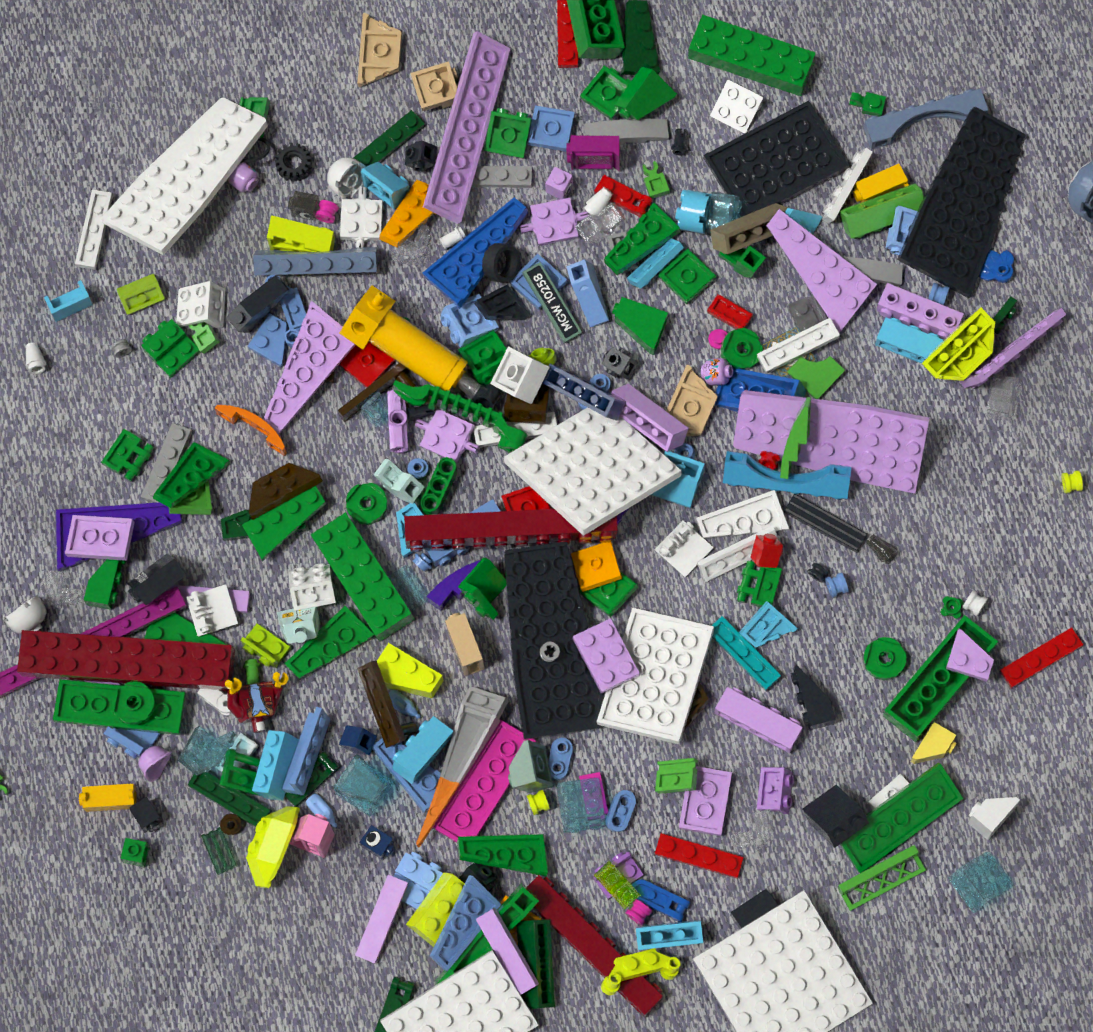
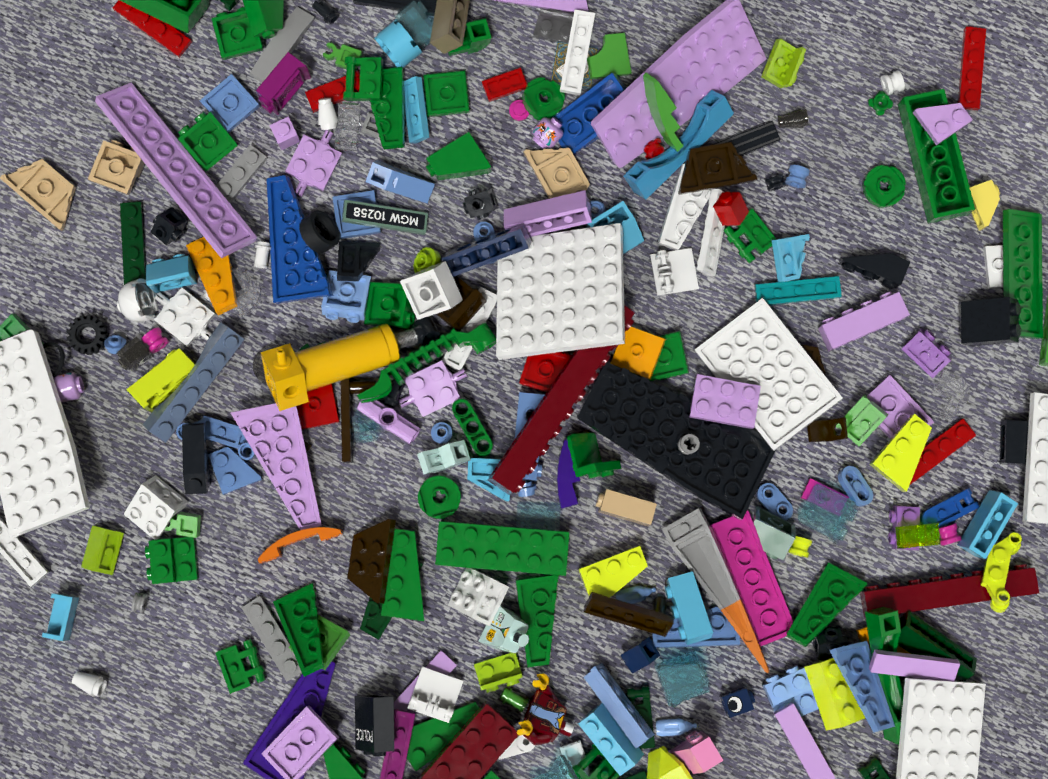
camera: 65 degrees left, 10 degrees up
(302, 185) = (114, 343): none -> medium blue plate
(646, 754) = (825, 430): none -> dark brown bracket
(650, 211) = (370, 79): none -> green plate
(673, 822) = (902, 453): none -> neon yellow wedge
(789, 515) = (714, 168): none -> dark brown wing
(920, 507) = (783, 64): none -> lime bracket

